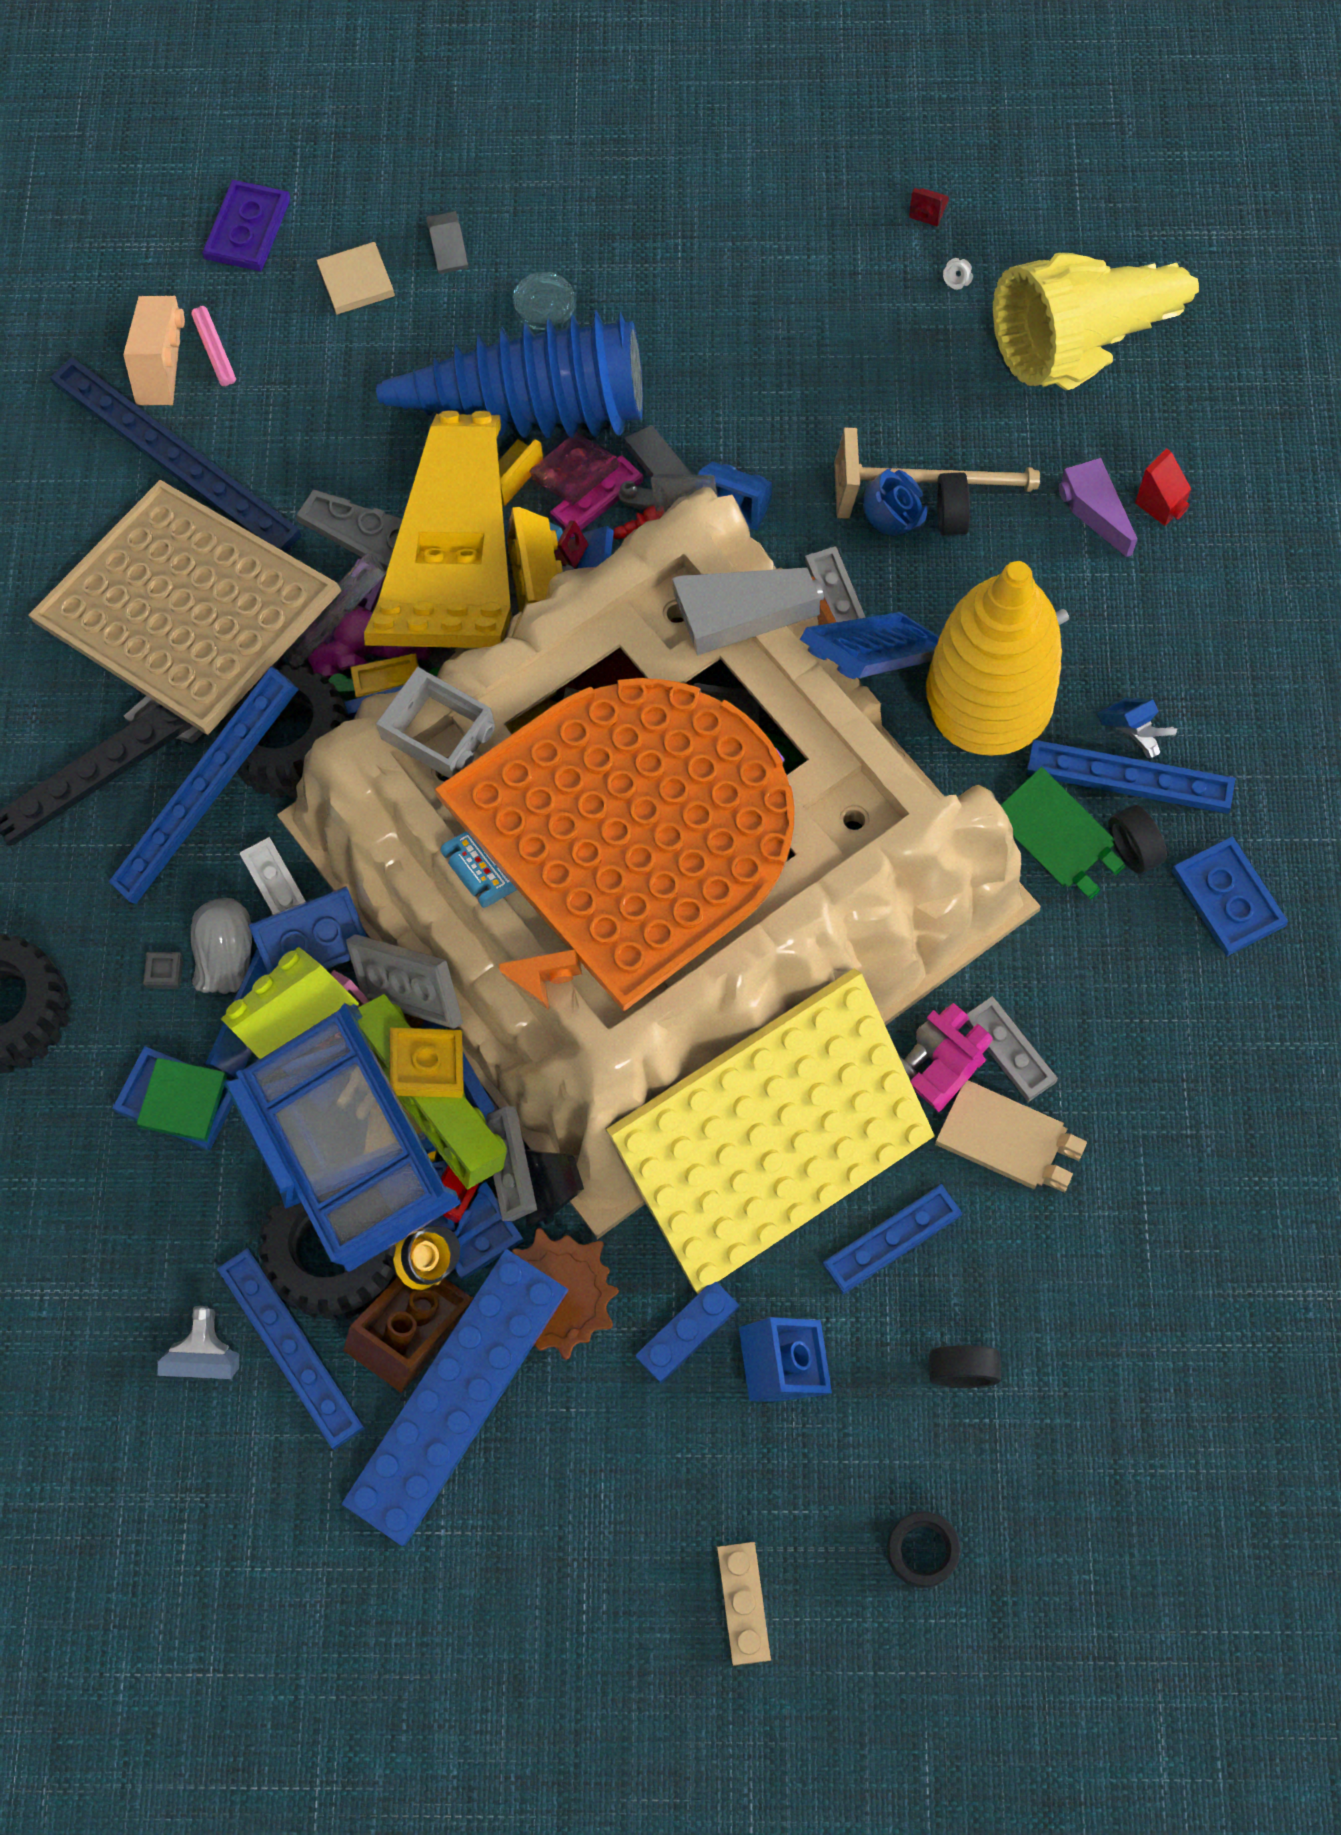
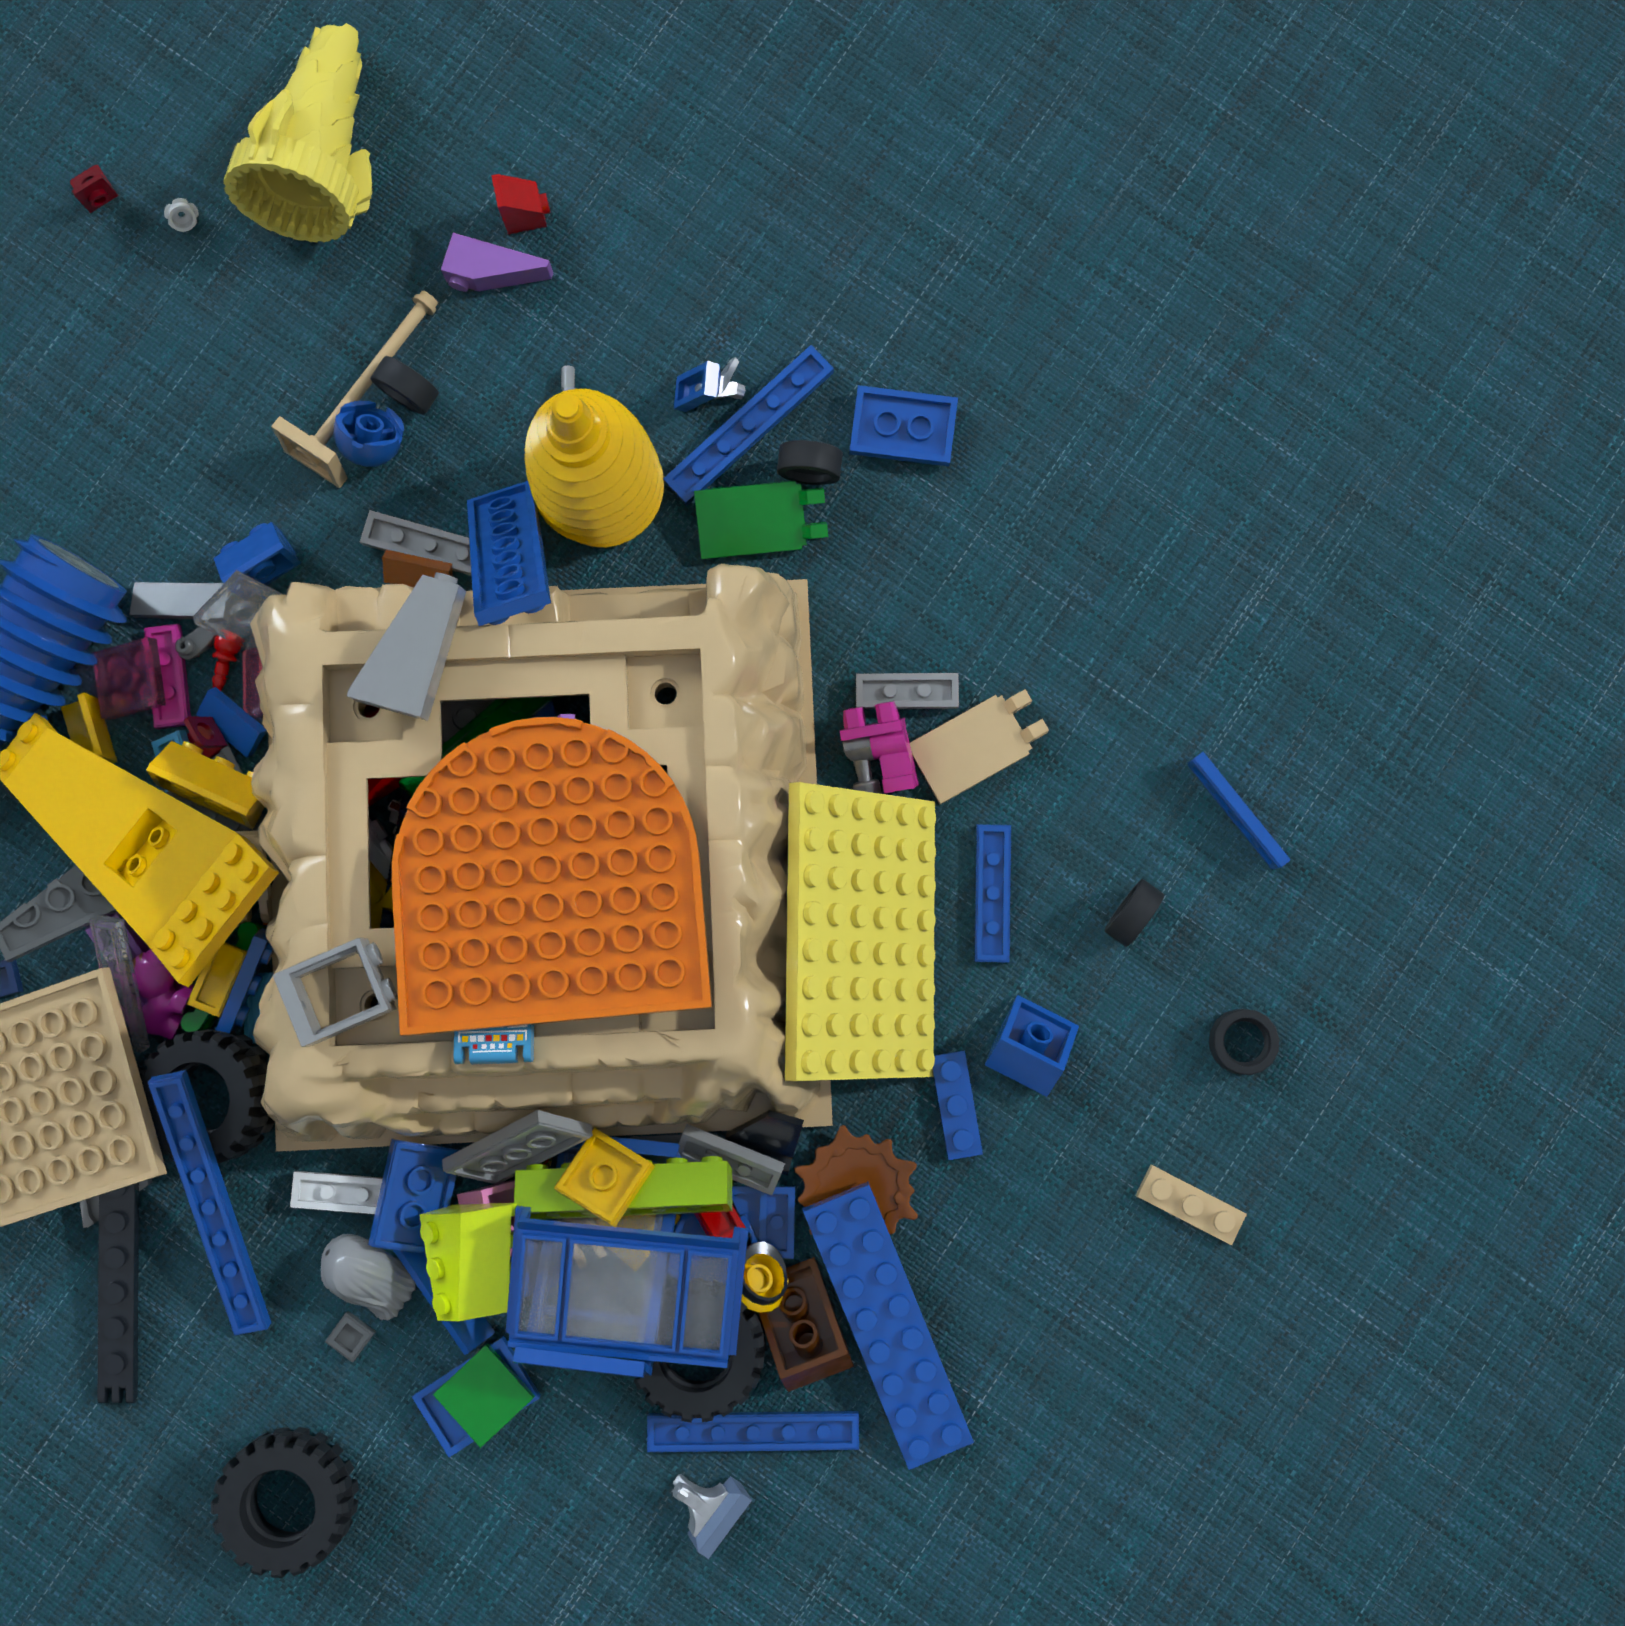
camera: 60 degrees left, 15 degrees up
(531, 973) = (630, 1065): orange slope -> none
(1123, 1403) = (1238, 811): none -> blue tile

